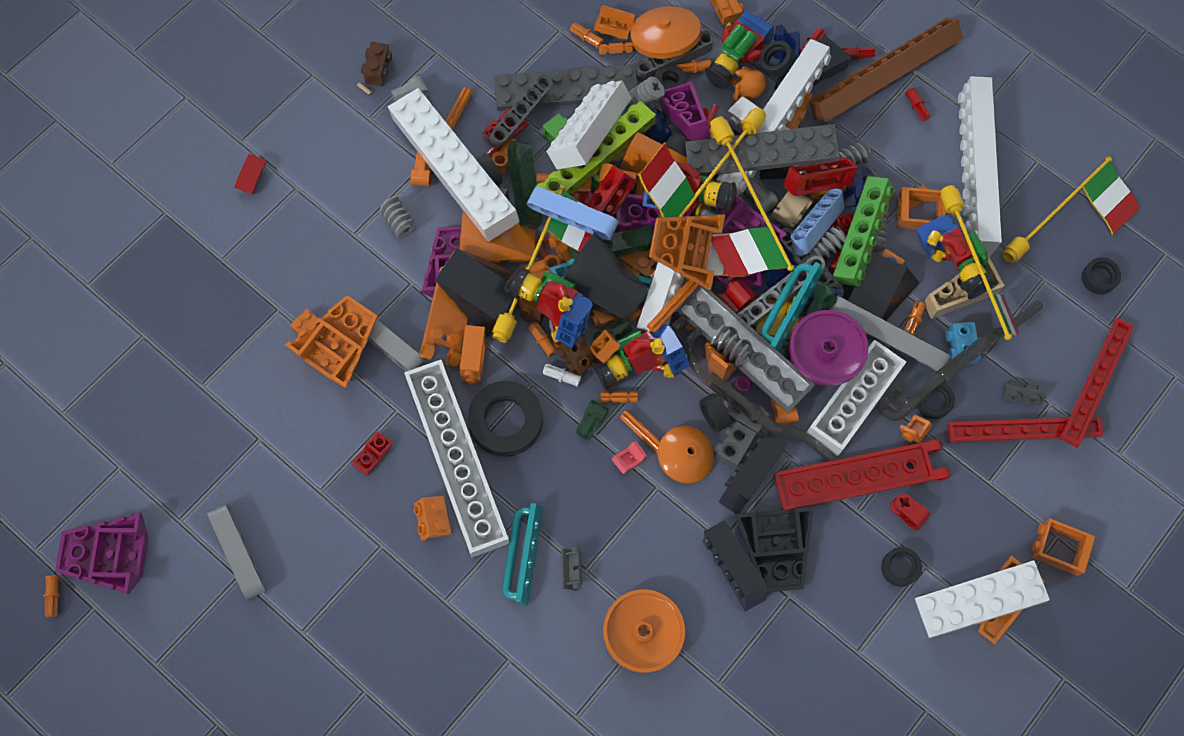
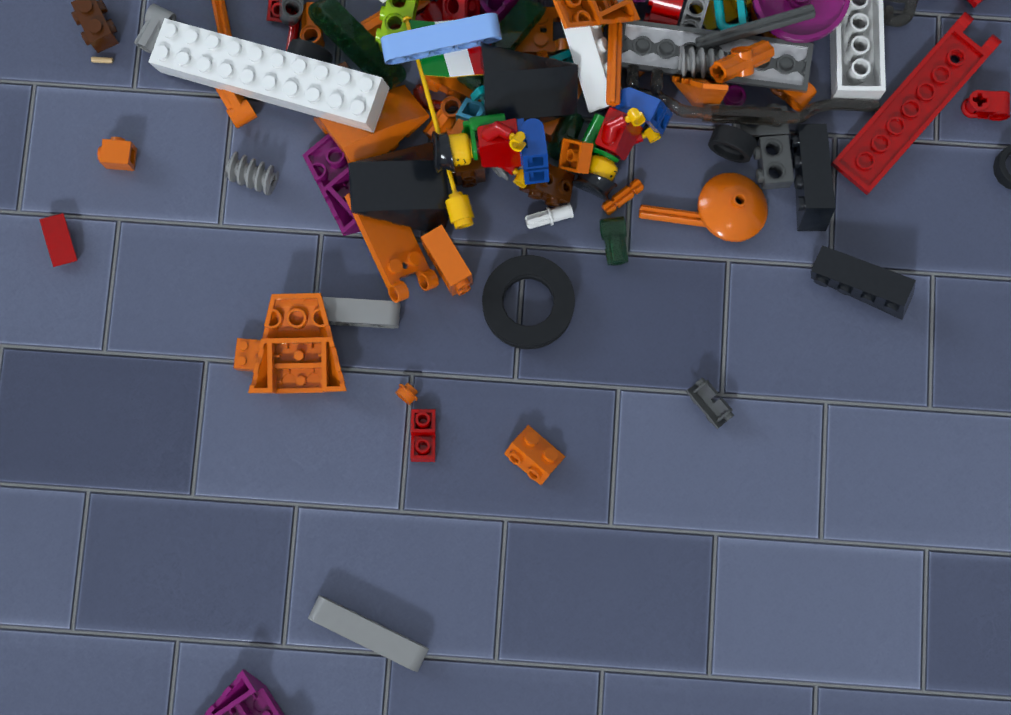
camera: 30 degrees left, 10 degrees up
(327, 149) = (117, 154): none -> orange brick
(383, 419) = (407, 393): none -> orange plate
(456, 458) = (512, 377): white brick -> none
(528, 557) = (682, 463): teal piece -> none
(542, 339) = (501, 193): orange axle -> none
(629, 458) = (681, 251): coral bracket -> none
(644, 631) = (826, 411): orange dish -> none
(754, 360) = (741, 61): none -> orange piece
(778, 545) = (889, 229): black wedge -> none
(781, 346) = (756, 27): none -> dark grey axle
(915, 429) = (935, 17): orange bracket -> none

